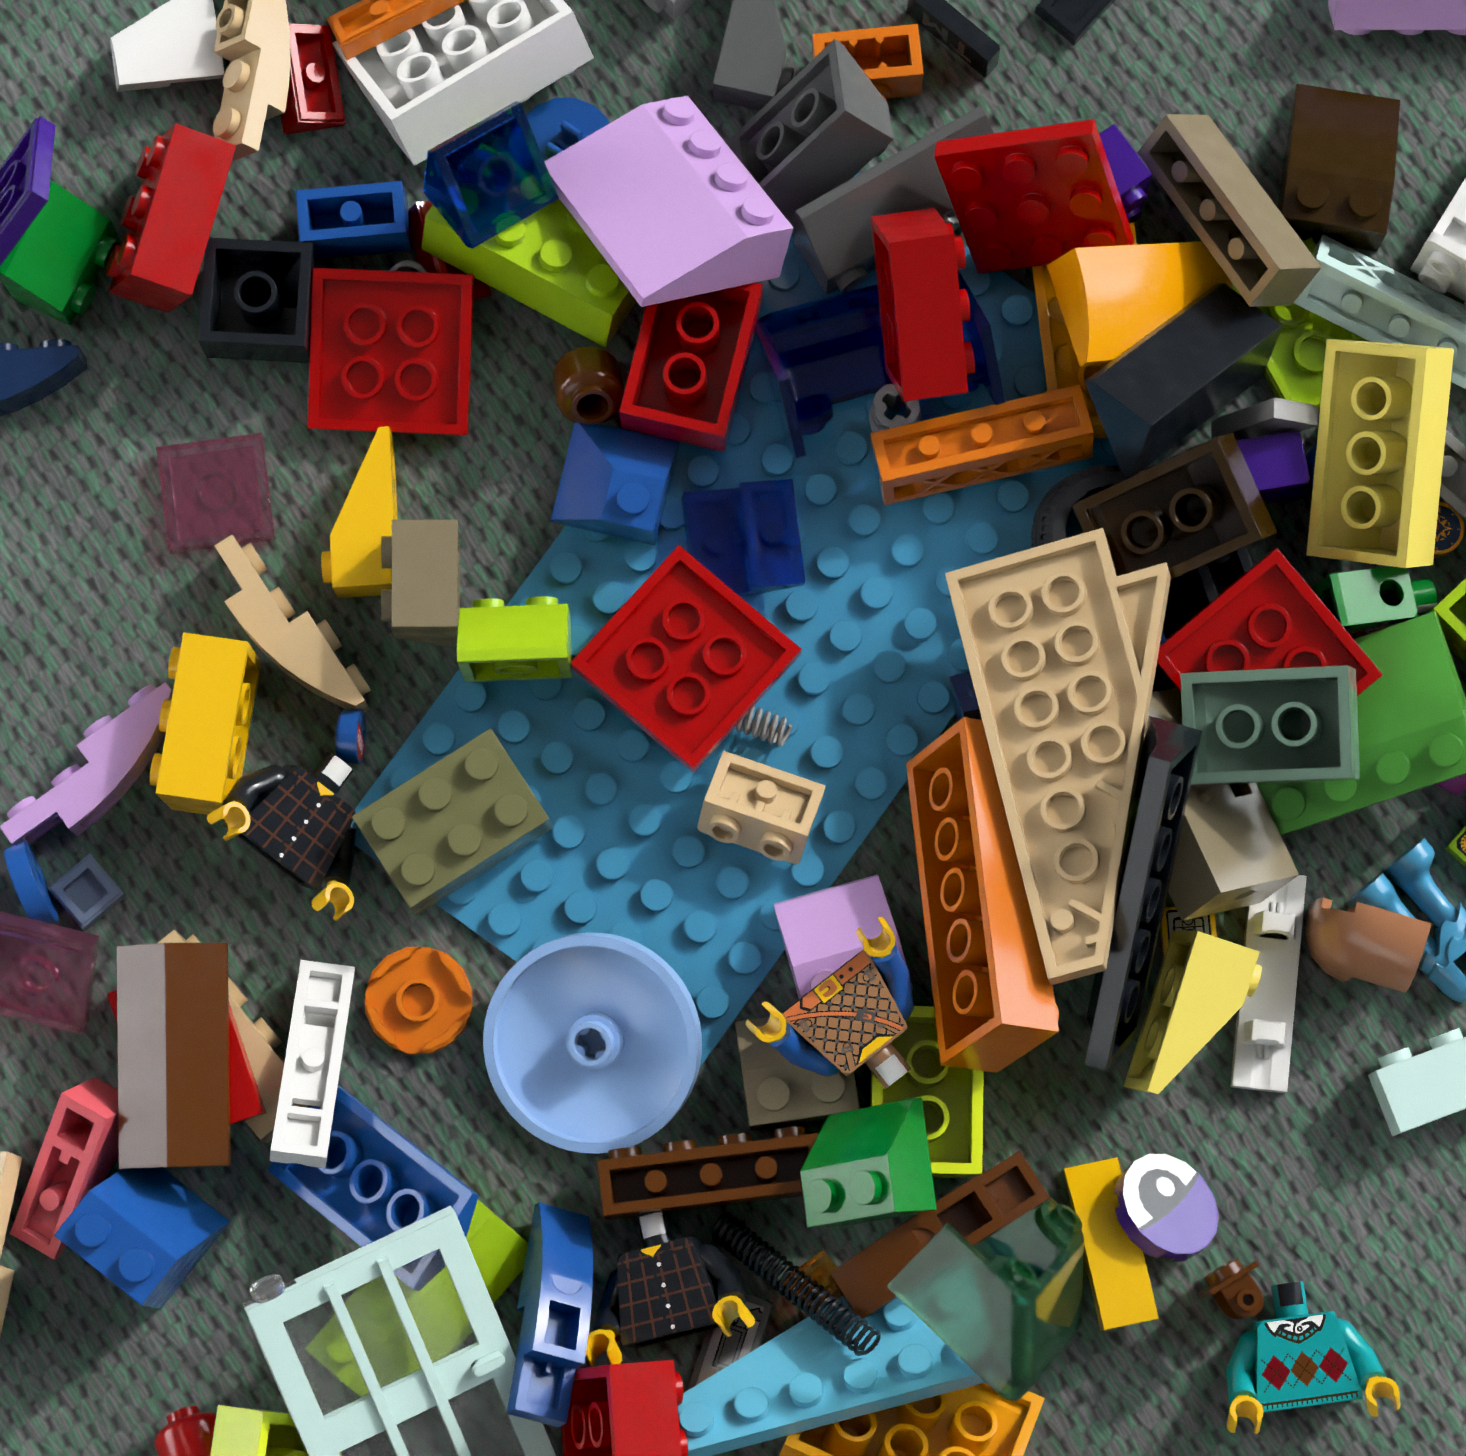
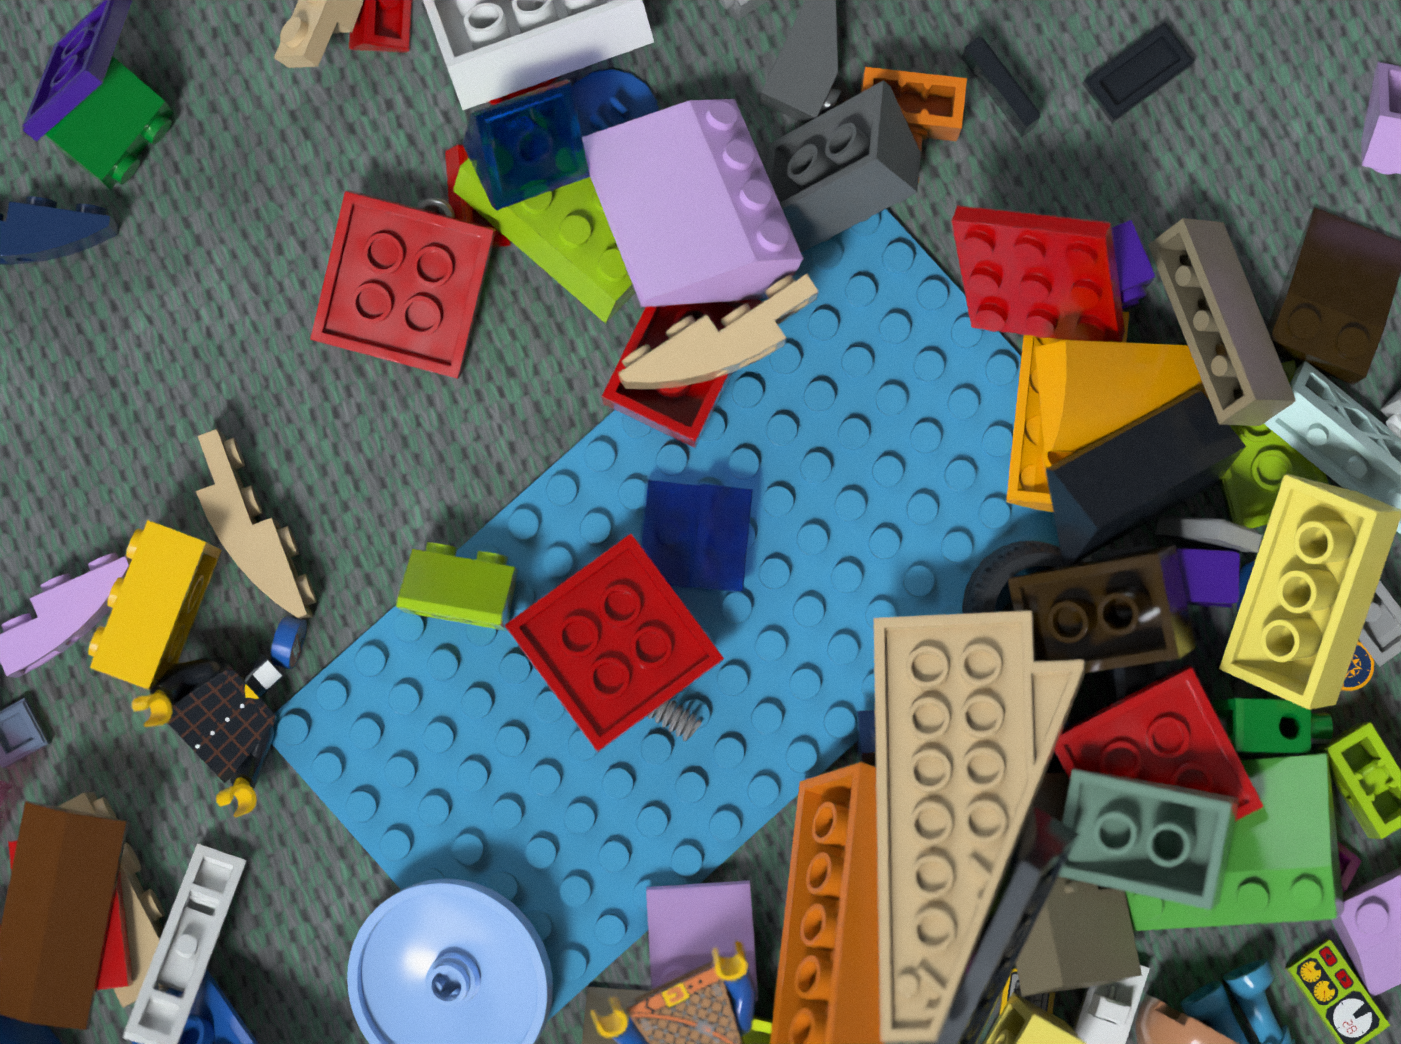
camera: 10 degrees right, 5 degrees up
(169, 218) = (221, 113): red brick -> none
(215, 492) = (212, 381): clear pink tile -> none
(256, 300) = (286, 207): black slope -> none
(354, 219) = (394, 150): blue brick -> none
(365, 517) = (344, 451): yellow slope -> none
(424, 581) = (384, 514): dark tan slope -> none
(431, 1016) = (316, 893): orange tile -> none
(453, 822) = (363, 748): olive brick -> none
(588, 385) = (581, 357): reddish brown head -> none
(615, 482) = (586, 453): blue slope -> none
(712, 343) = (702, 353): none -> tan slope
(760, 808) = (654, 795): tan bracket -> none
(836, 354) = (861, 374): clear blue windscreen -> none
(837, 228) = (895, 253): dark grey slope -> none
(889, 397) = (863, 463): light grey bush -> none
(922, 304) = (909, 357): red brick -> none
(983, 444) = (938, 496): orange fence -> none

